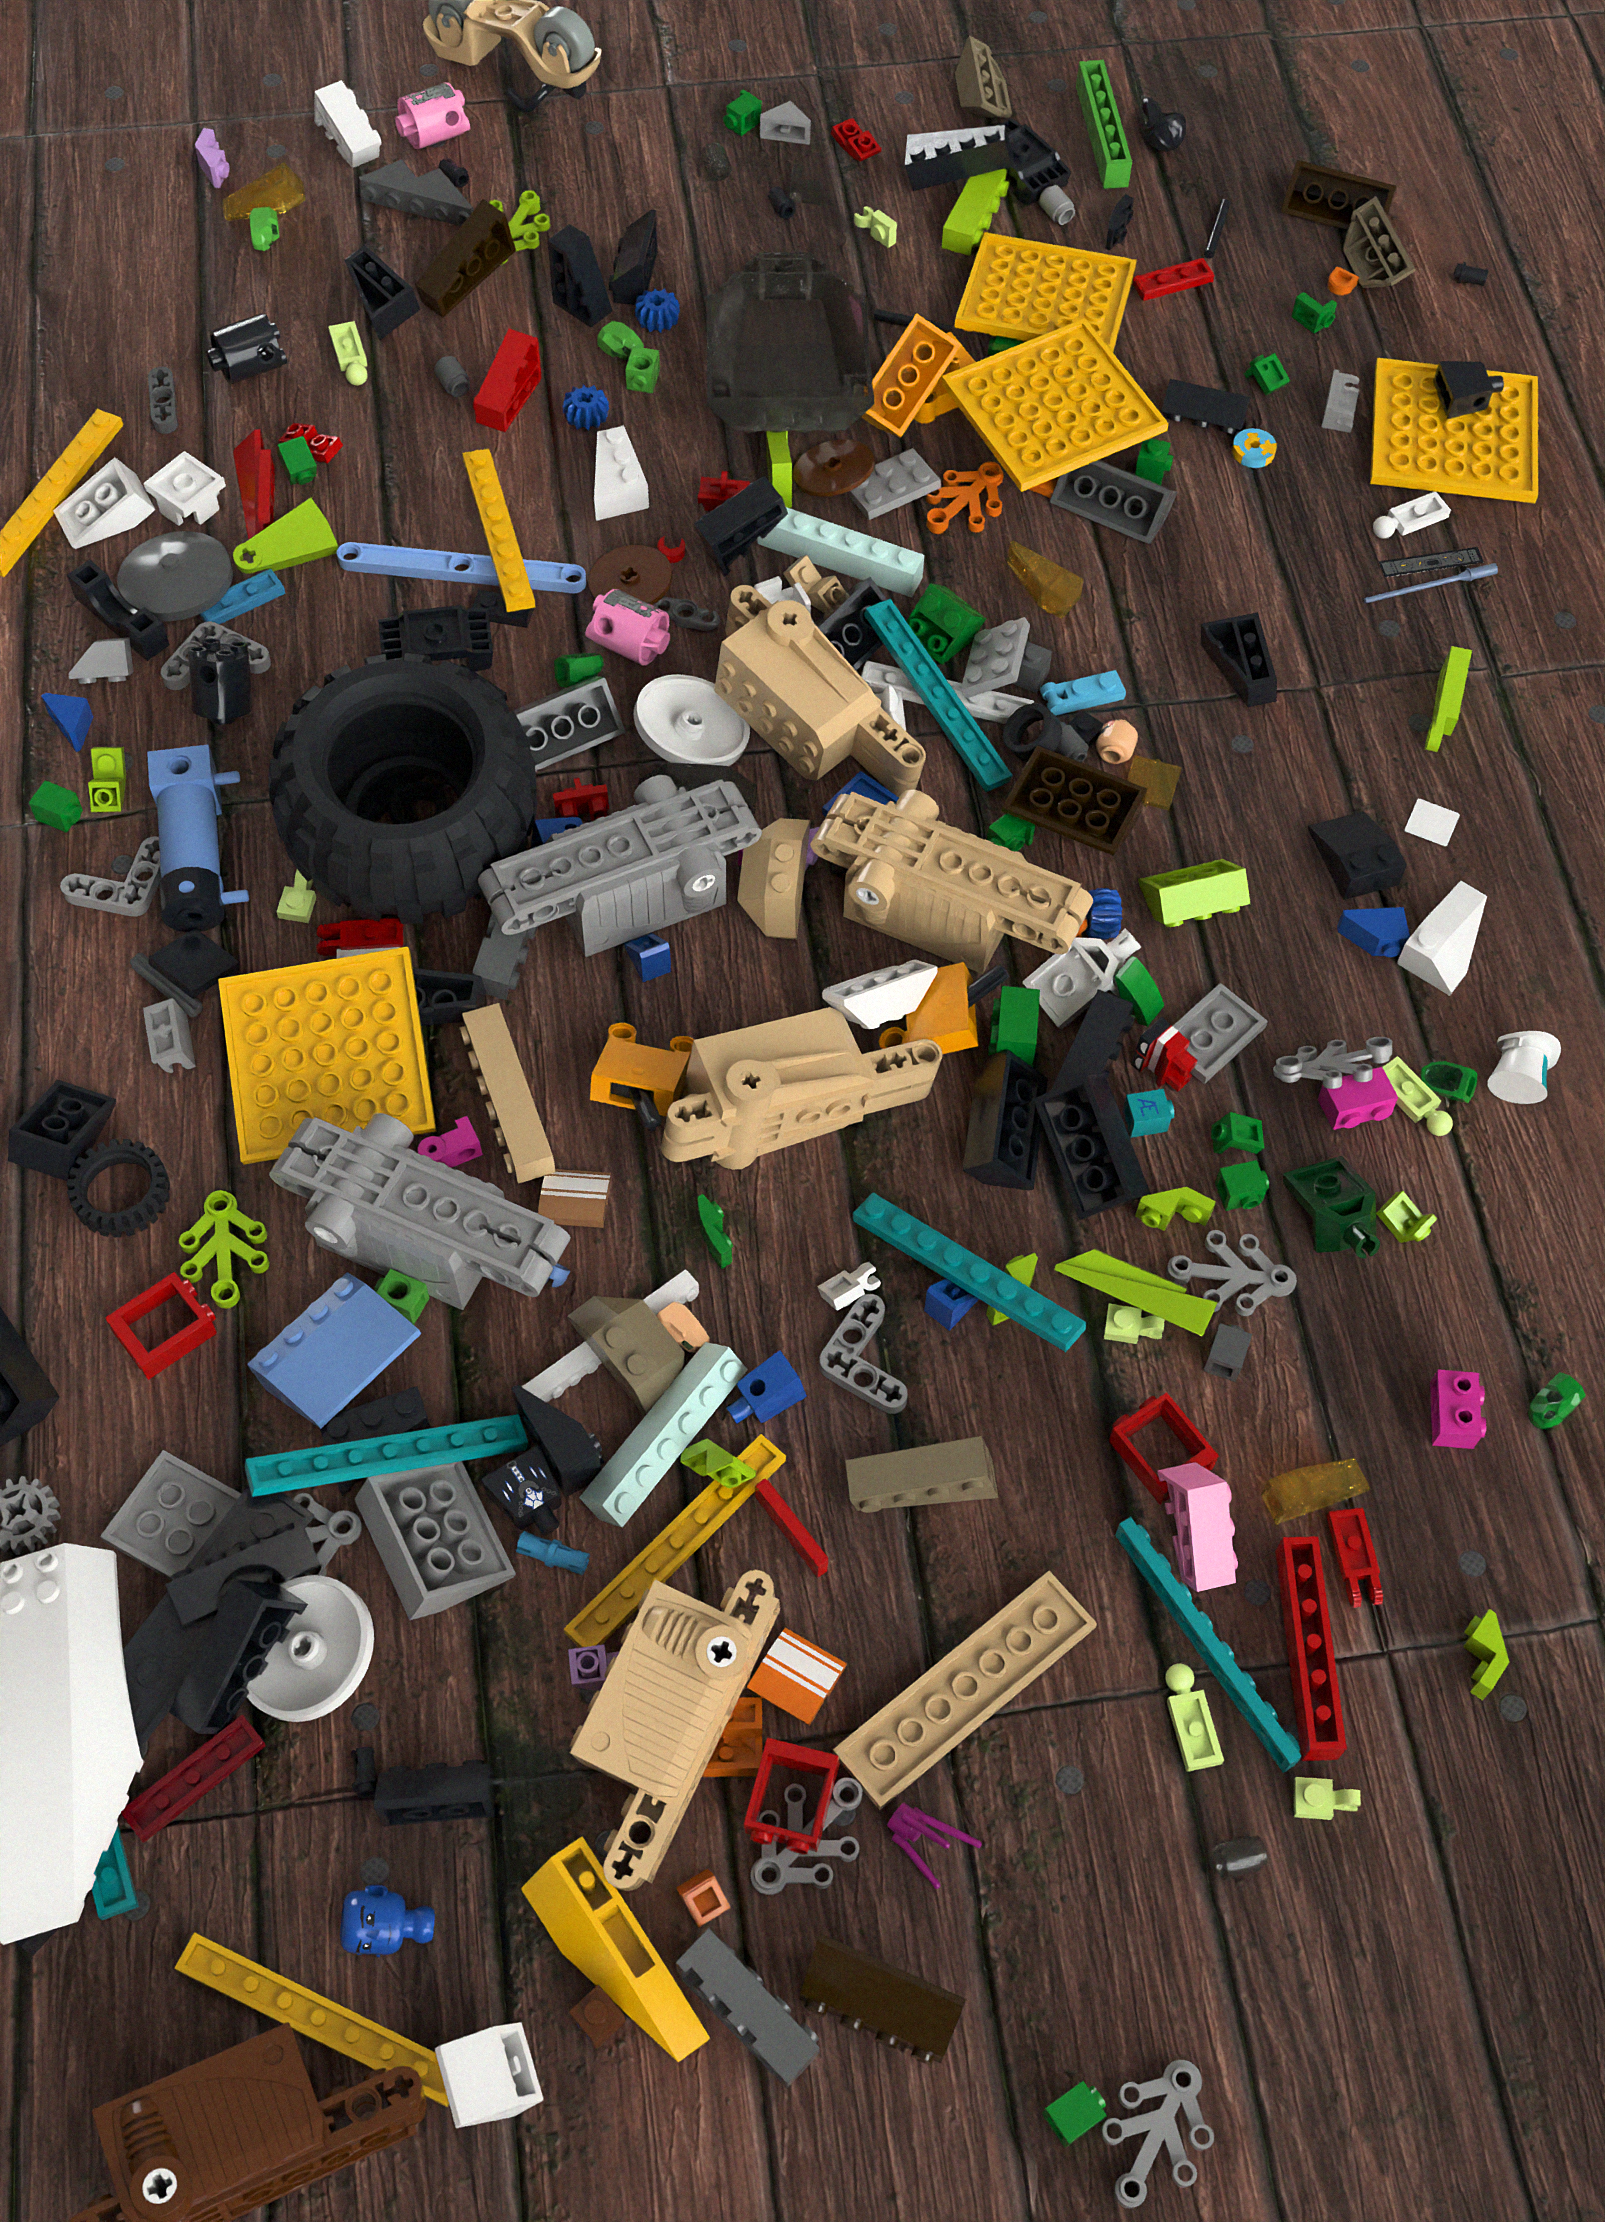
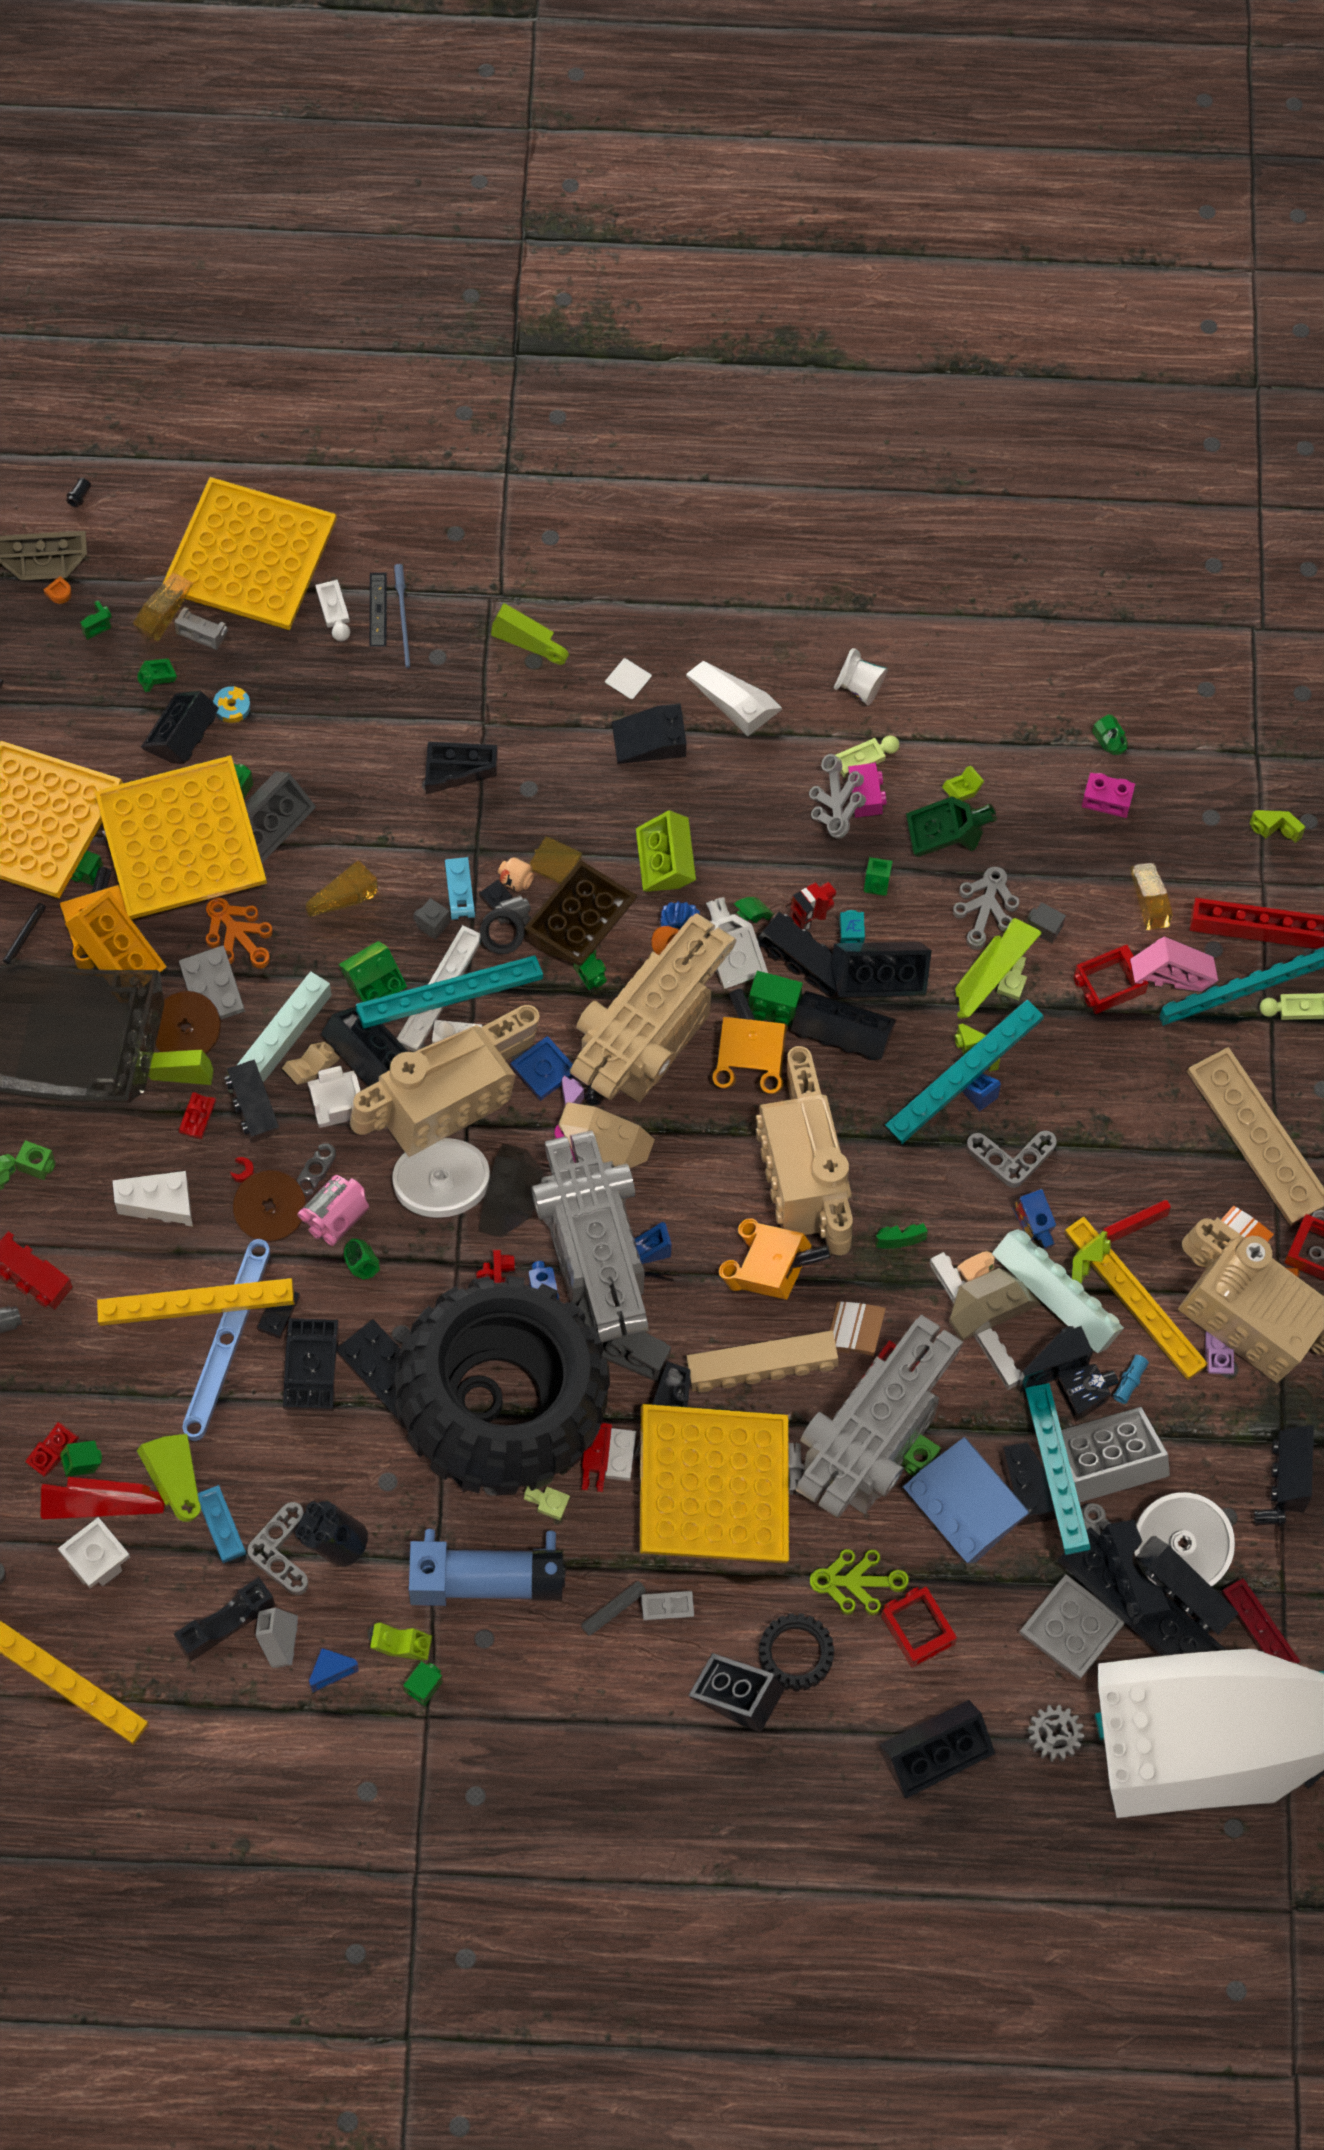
camera: 80 degrees left, 5 degrees up
(104, 506) = (95, 1630): white slope -> none
(122, 892) = (516, 1636): light grey beam -> none
(176, 575) = (187, 1573): dark grey dish -> none
(193, 963) = (600, 1583): black tile -> none
(454, 1146) = (800, 1405): dark pink leg -> none
(570, 721) = (411, 1273): dark grey slope -> none
(585, 407) = (78, 1213): blue gear -> none
(847, 1287) = (960, 1155): white plate -> none
(882, 993) = (737, 1079): white wedge -> none
(922, 1476) = (1114, 1131): dark tan wedge -> none
(995, 657) = (425, 941): light grey plate -> none
(1159, 1208) = (930, 934): lime slope -> none
(1173, 279) = (23, 717): red tile -> none
(1218, 1030) = (788, 867): light grey plate -> none
(1241, 1185) = (920, 882): green brick -> none
(1350, 357) = (162, 606): none -> clear yellow slope
(1355, 1554) = (1200, 882): red hinge -> none
(1376, 930) = (725, 739): blue slope -> none
(1450, 1080) = (859, 728): rock -> none
(1465, 387) = (218, 532): black torso -> none

